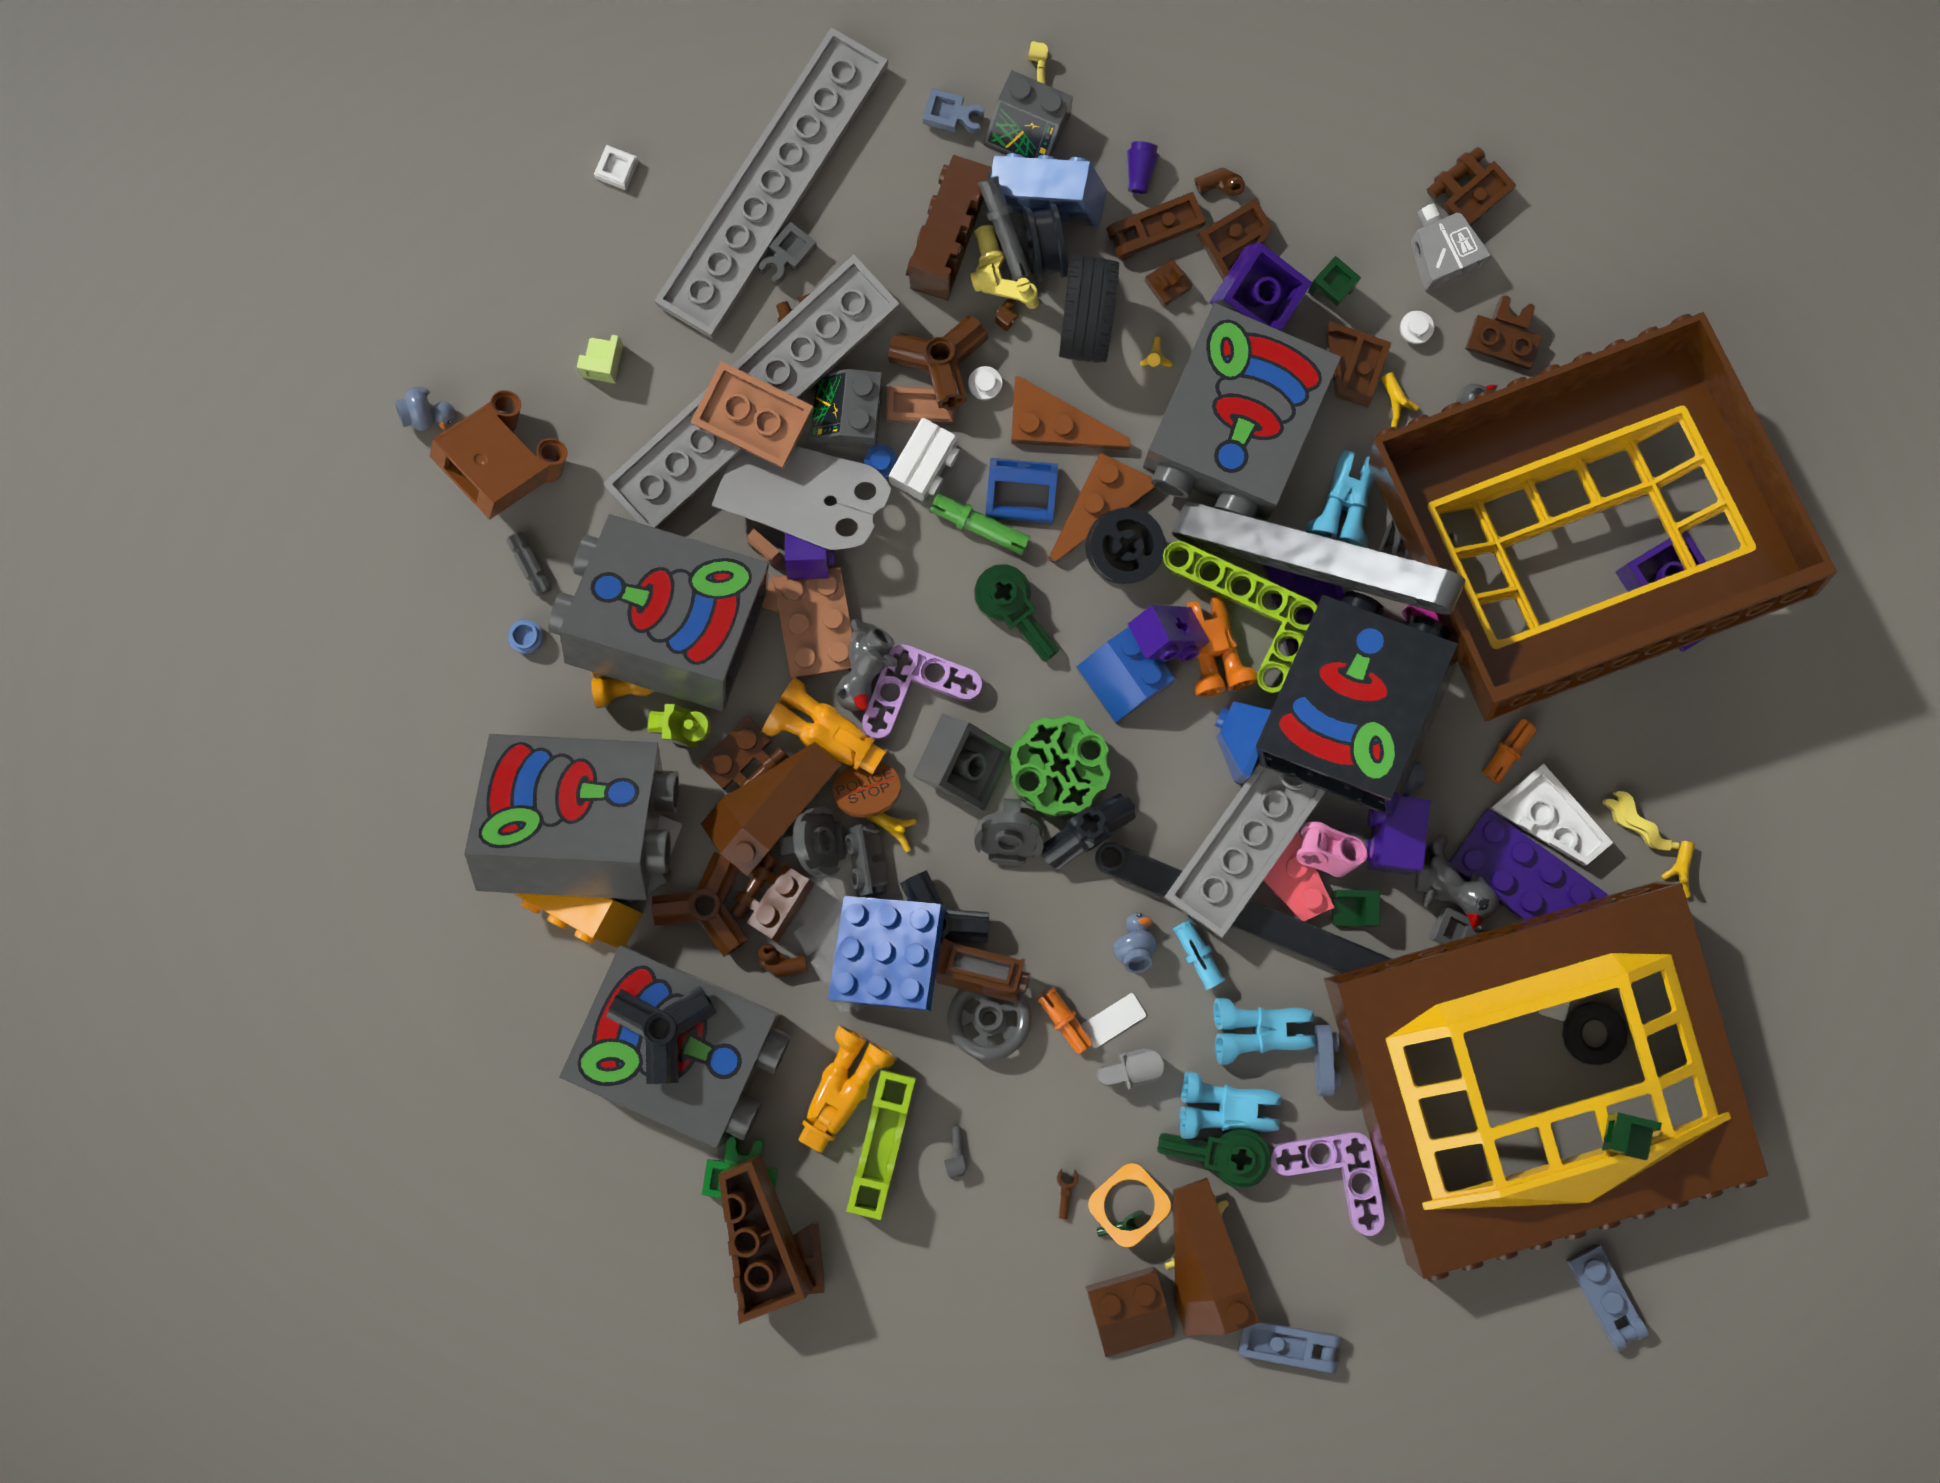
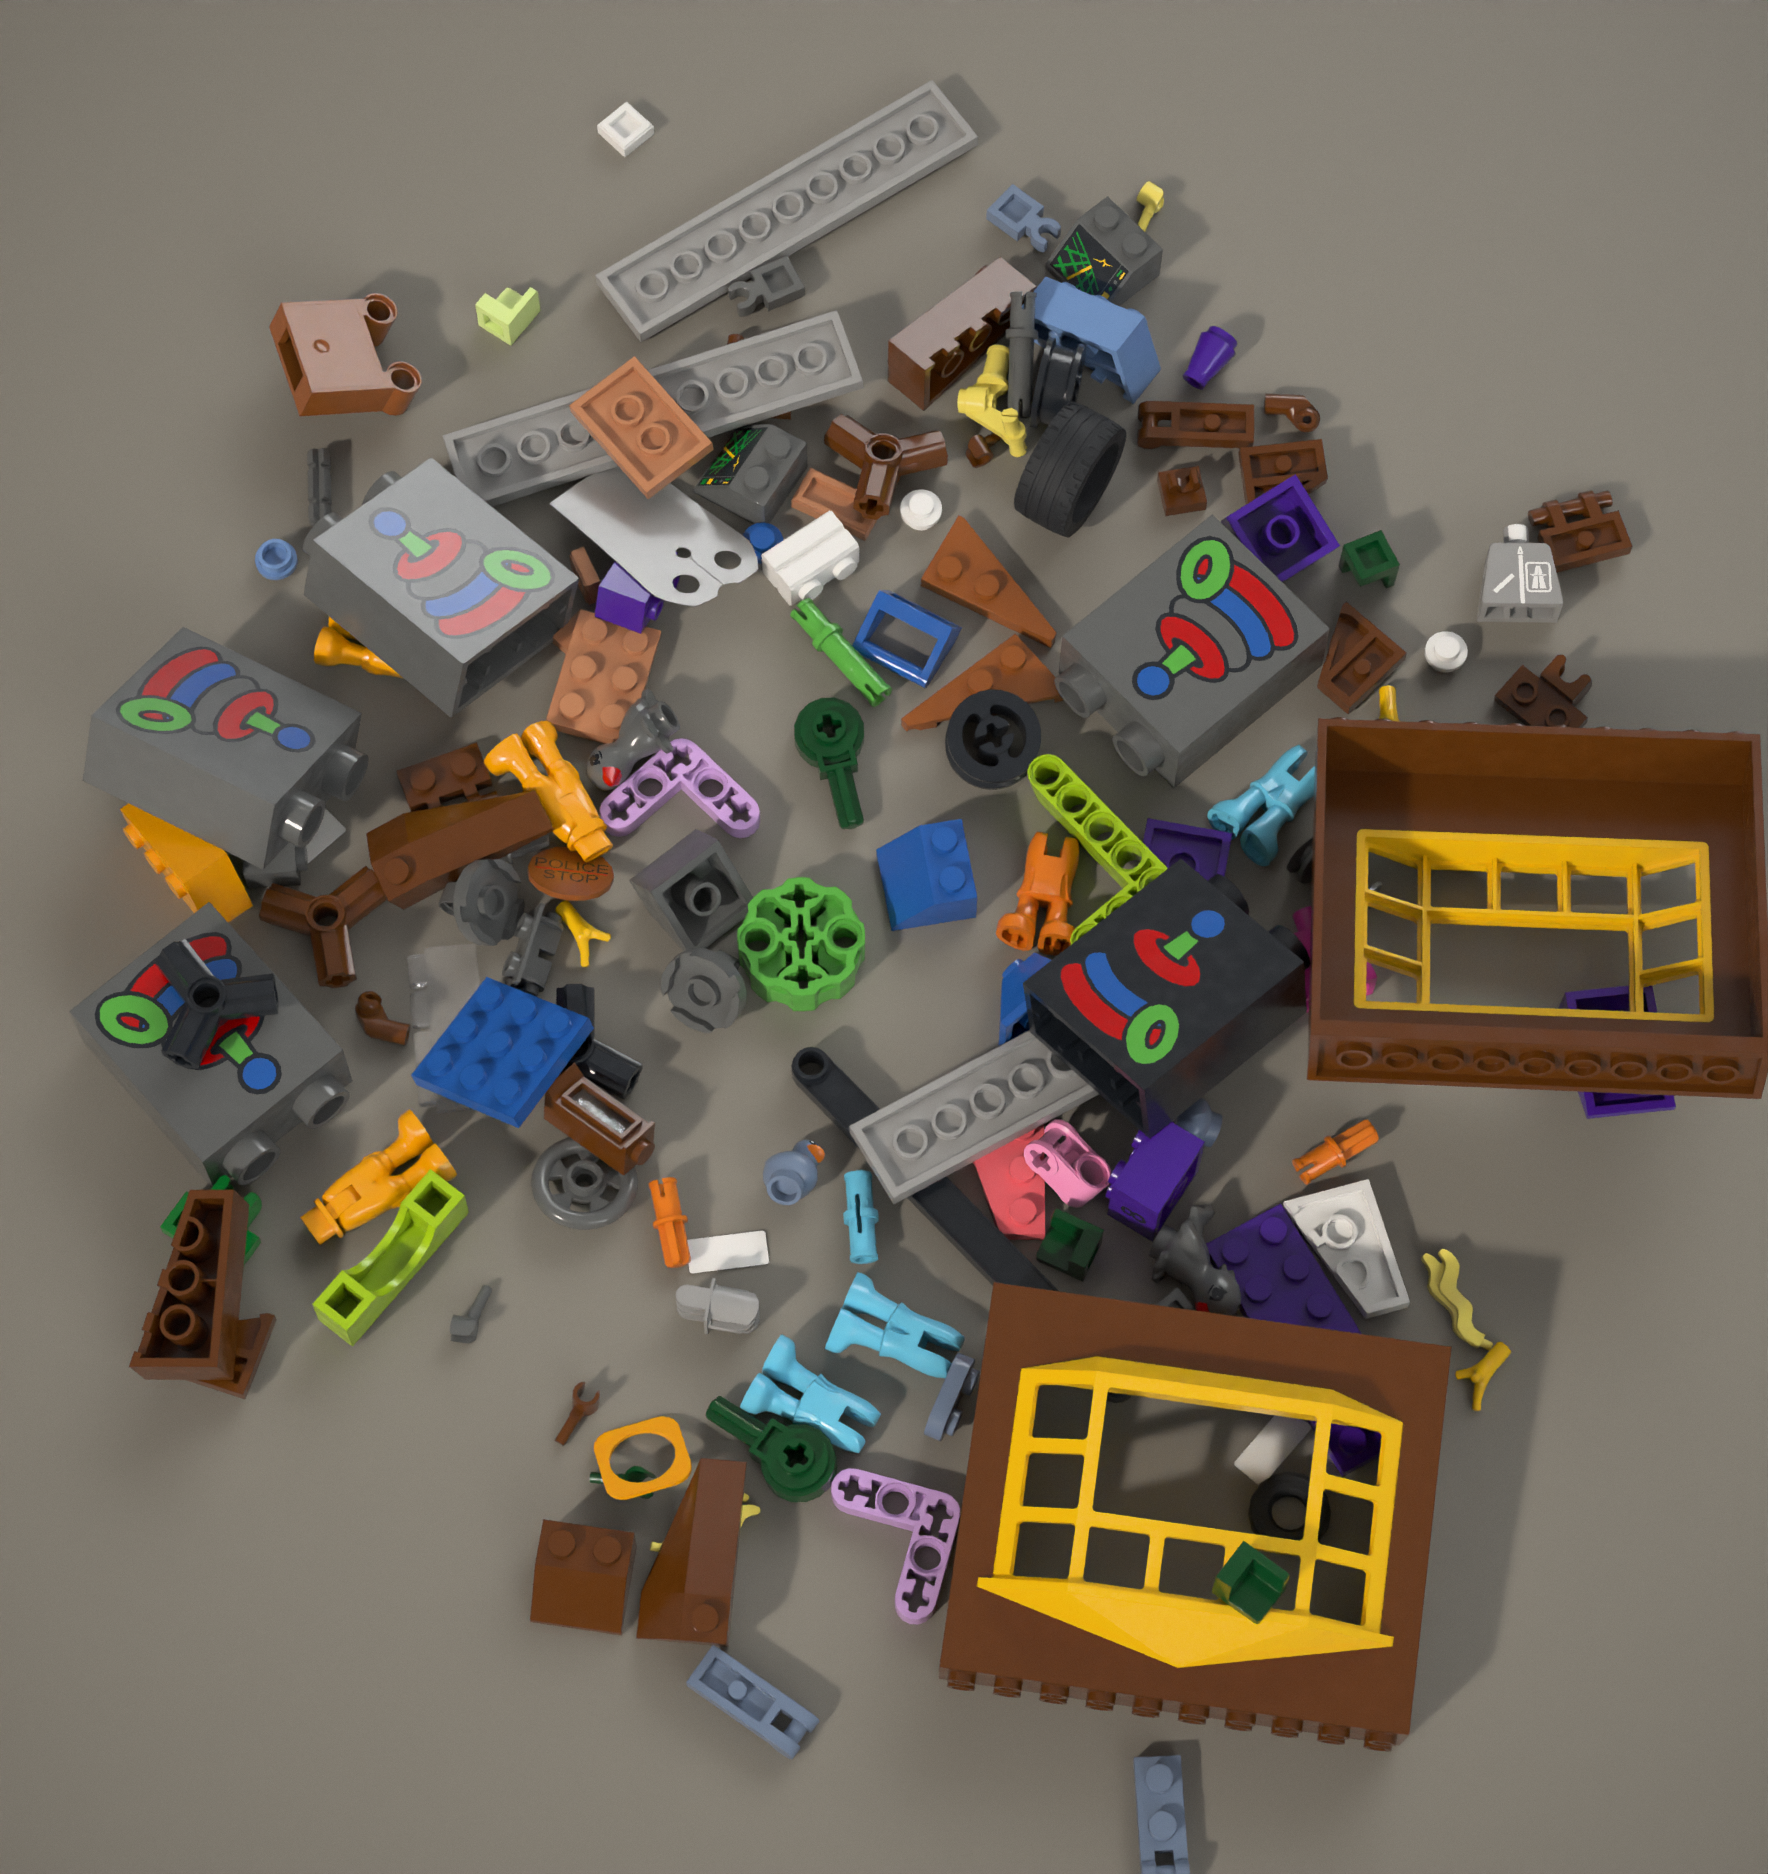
camera: 25 degrees right, 15 degrees down
(416, 410) = (280, 281): sand blue animal -> none
(680, 725) = (395, 714): lime hips -> none
(780, 901) = (411, 951): reddish brown plate -> none
(1088, 830) = (798, 1019): black piece -> none
(1155, 356) = (1127, 557): yellow bar -> none
(1168, 633) = (993, 845): dark purple brick -> none
(1320, 558) = (1199, 823): beam -> none

